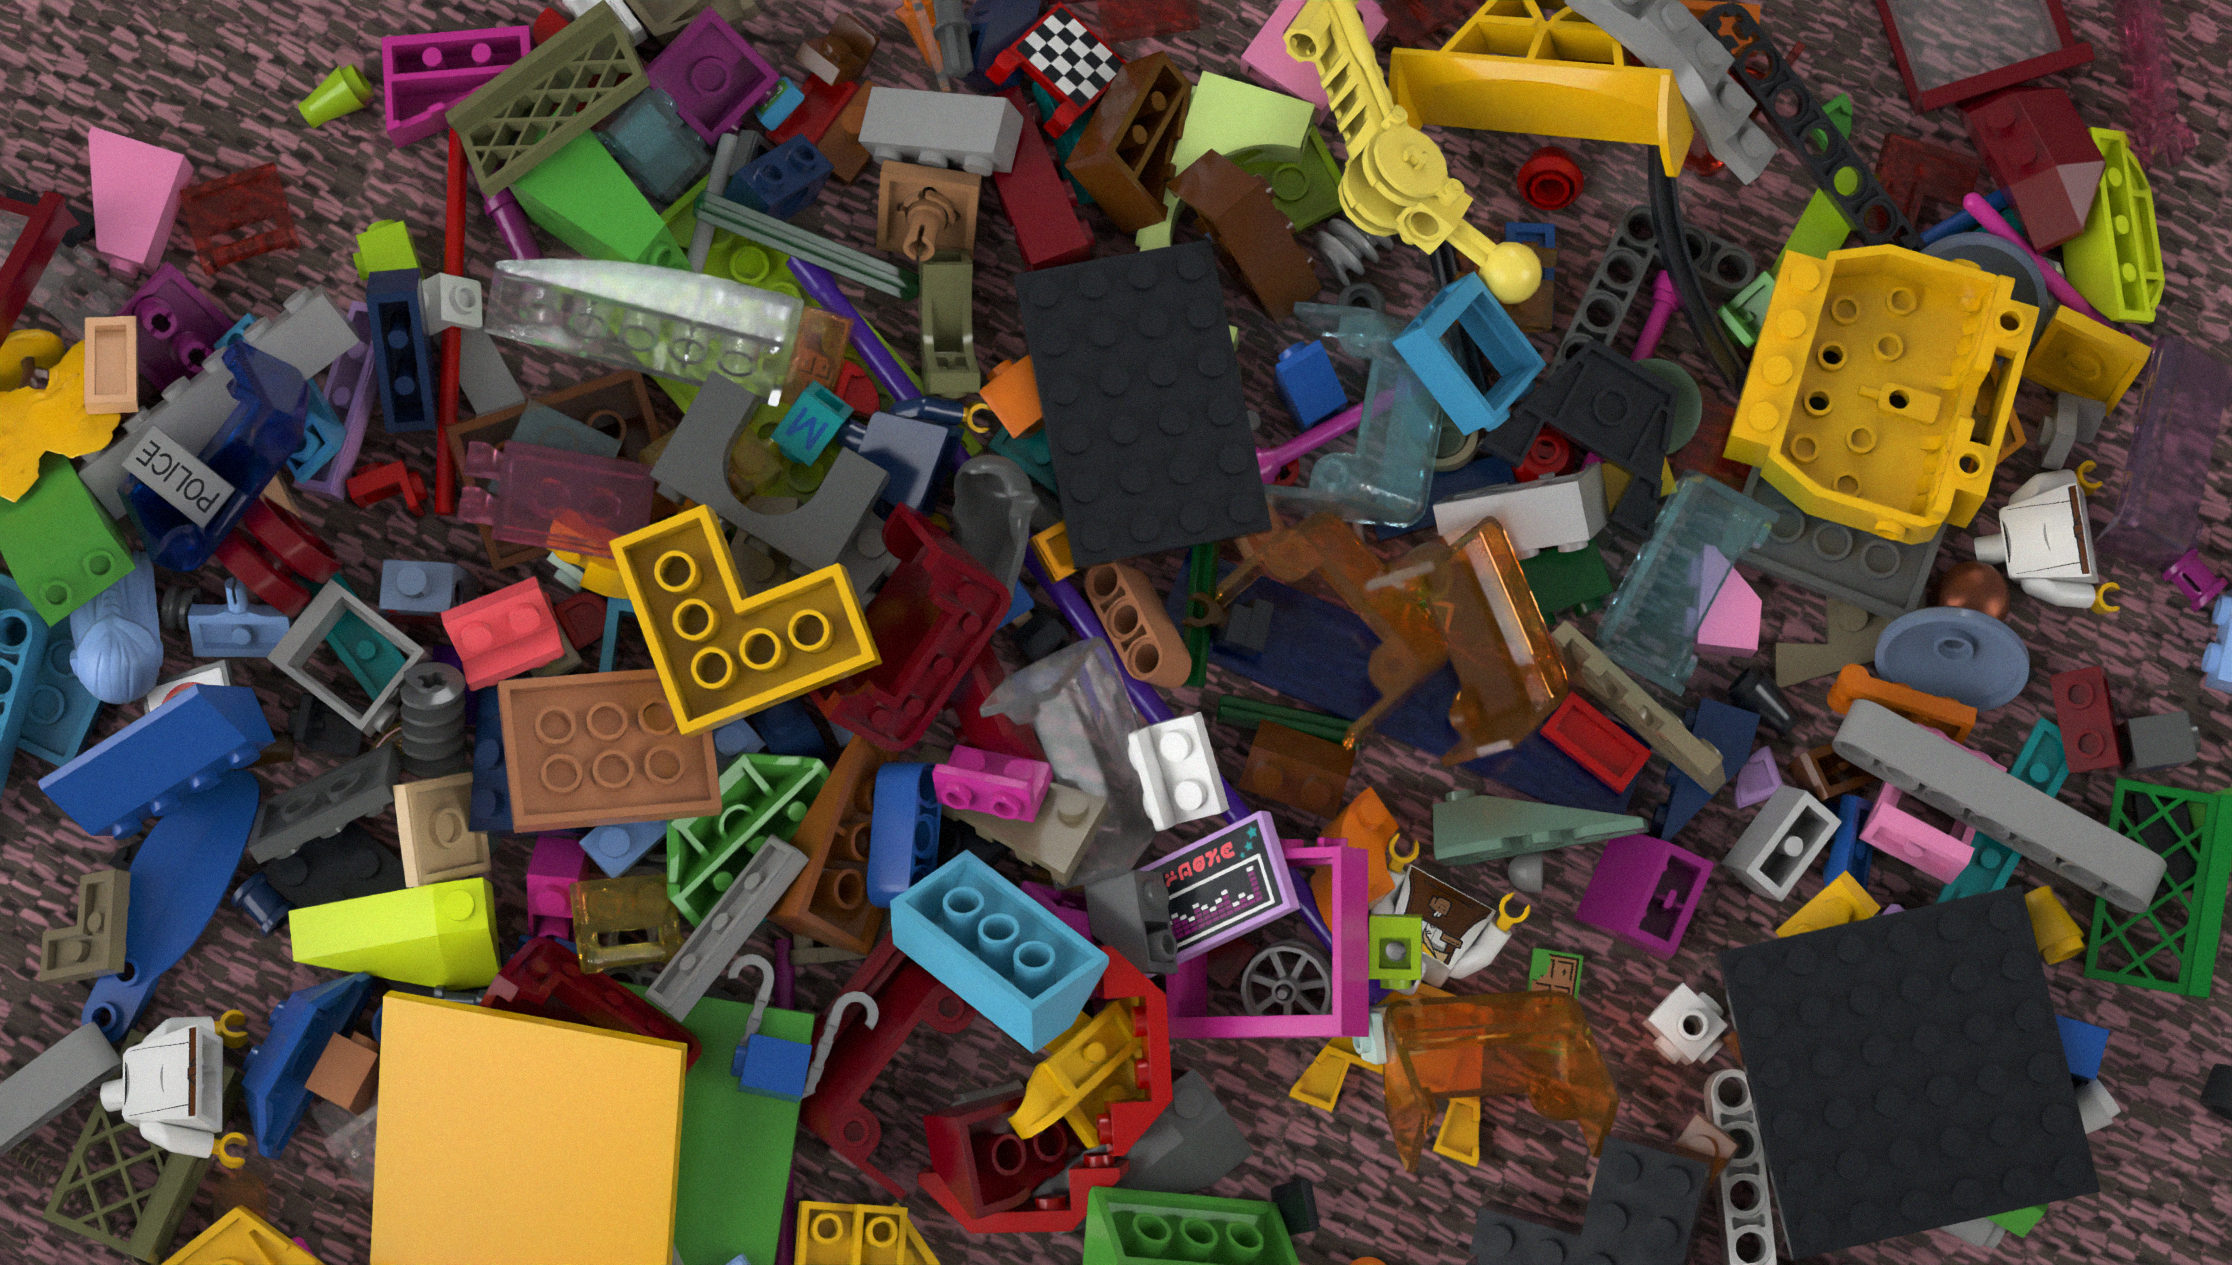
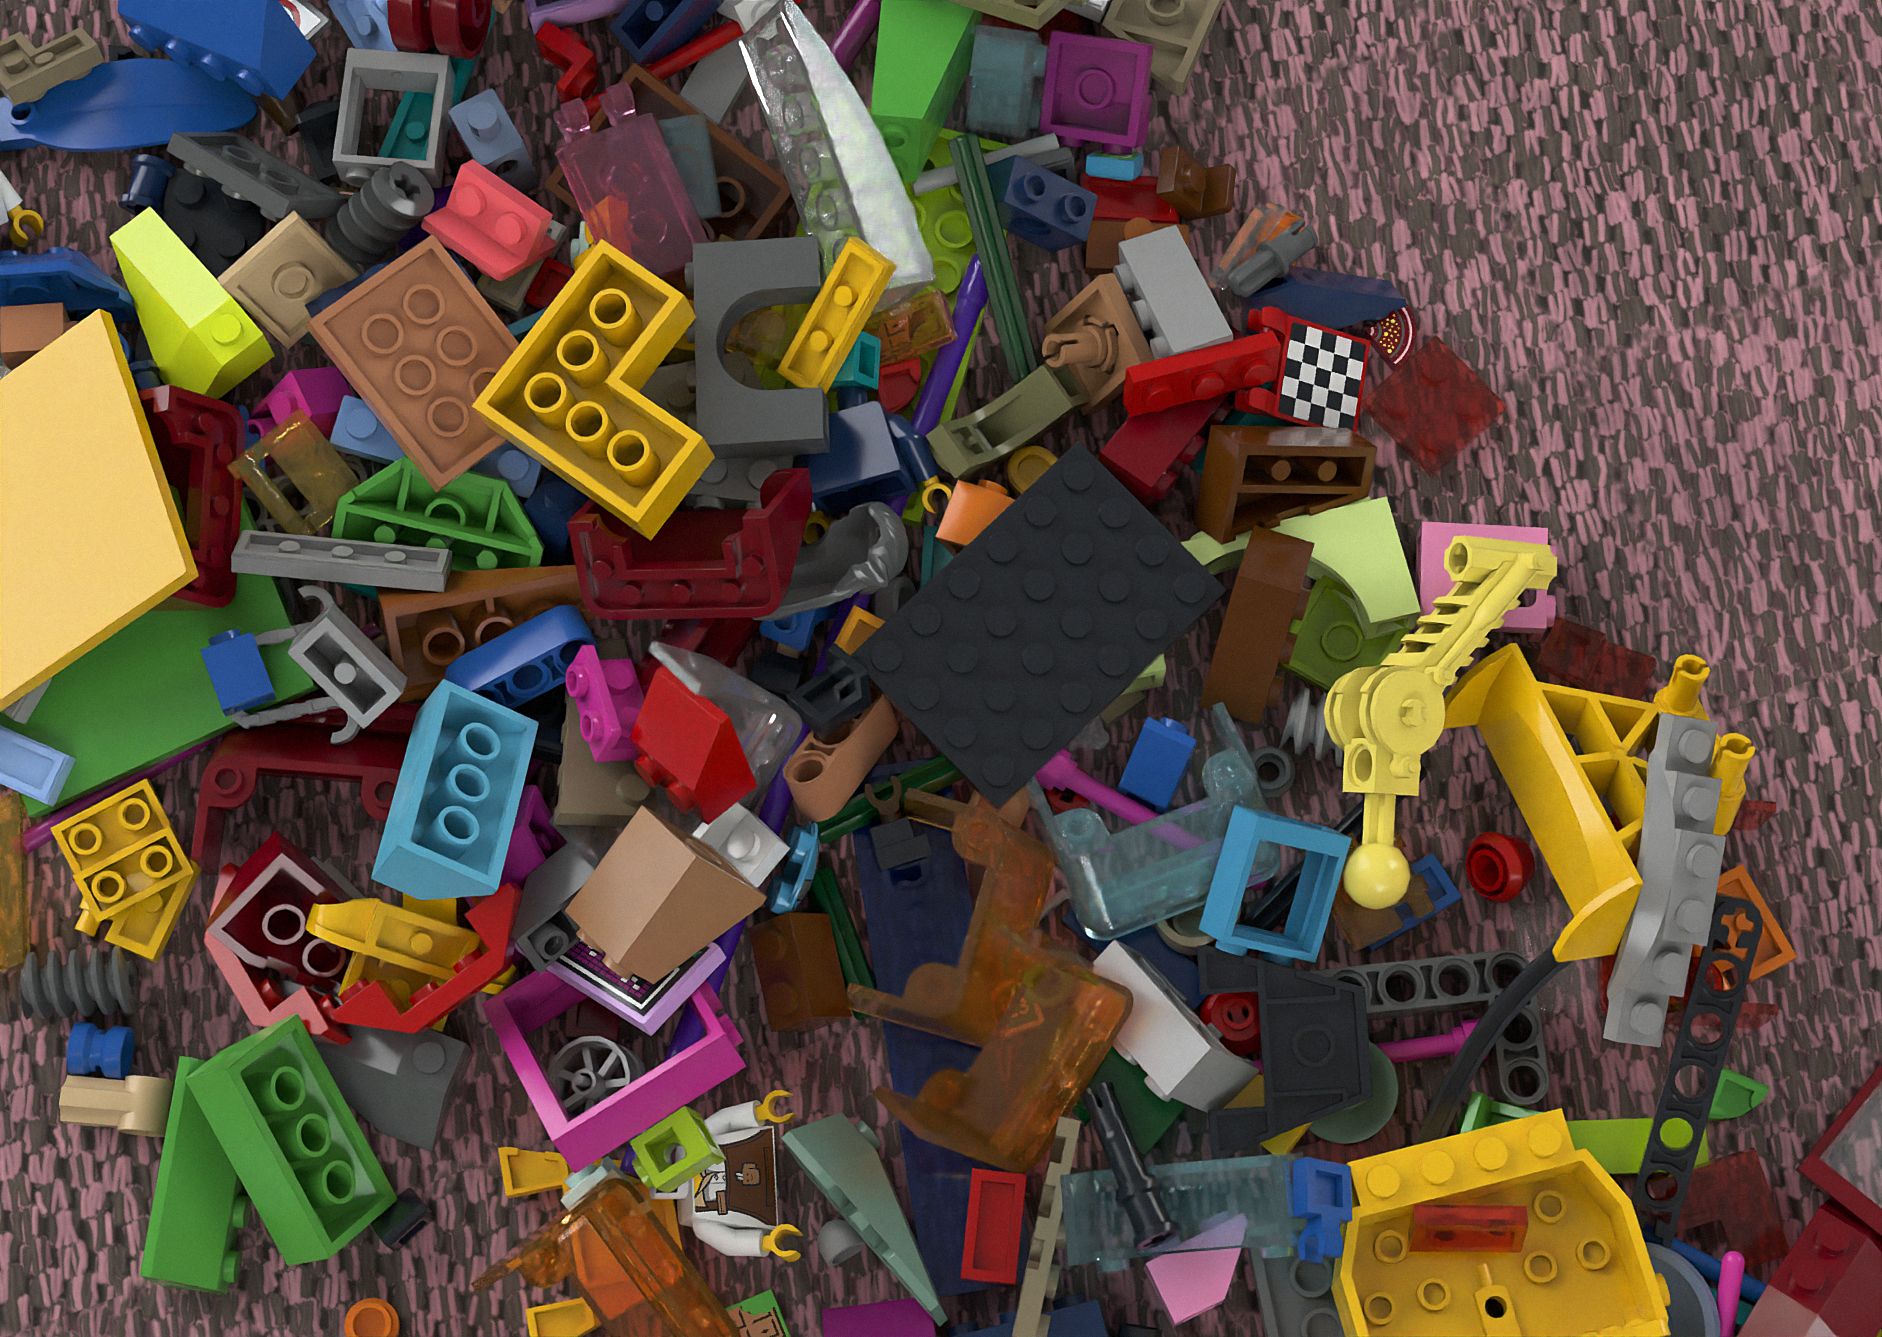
camera: 60 degrees right, 5 degrees down
(787, 399) = (837, 316): none -> yellow tile
(825, 973) = (347, 665): none -> light grey brick
(996, 332) = (1027, 466): none -> yellow tile
(1019, 145) = (1201, 373): none -> red plate
(1080, 737) = (689, 749): none -> red slope
(1094, 599) = (833, 694): none -> black bracket
(1190, 835) = (659, 898): none -> medium nougat slope
(1222, 723) = (788, 891): none -> dark azure dish
(1368, 827) = (771, 1064): orange brick -> none
(1644, 610) = (1137, 1189): none -> black pin
(1755, 471) = (1324, 1199): none -> blue plate
(1832, 379) = (1468, 1228): none -> clear red tile

